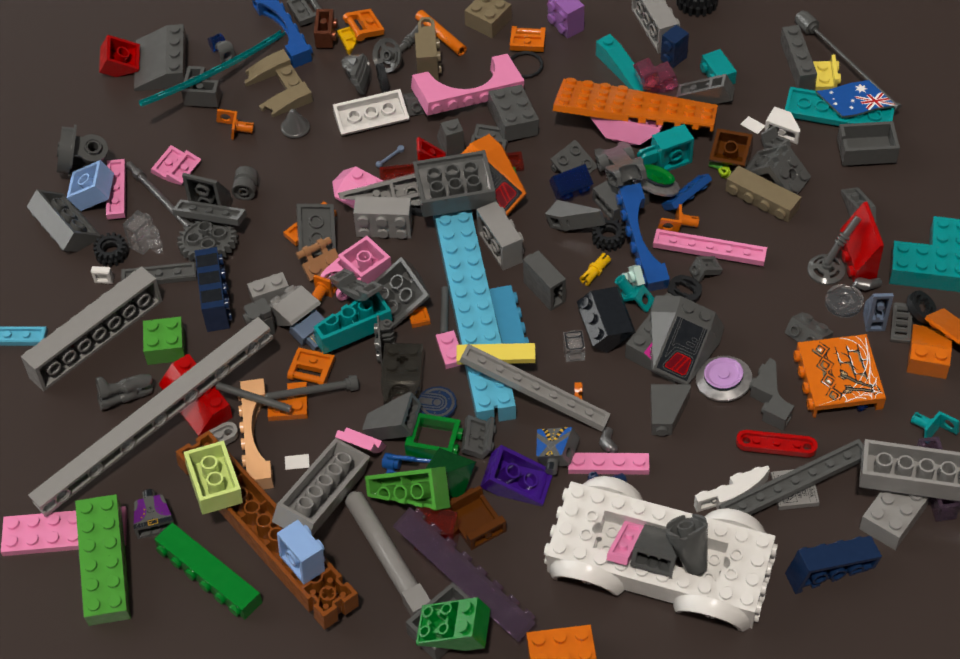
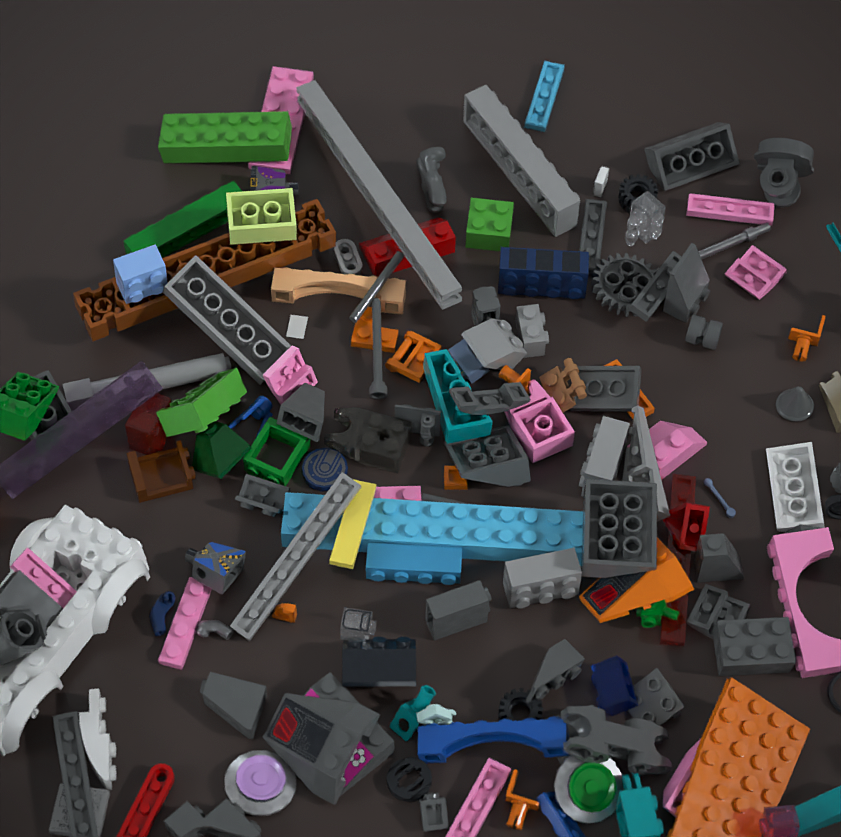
camera: 100 degrees right, 5 degrees up
(90, 185) = (730, 179): light blue brick -> none
(516, 477) = (195, 519): dark purple slope -> none
(595, 269) = (470, 682): yellow pin -> none

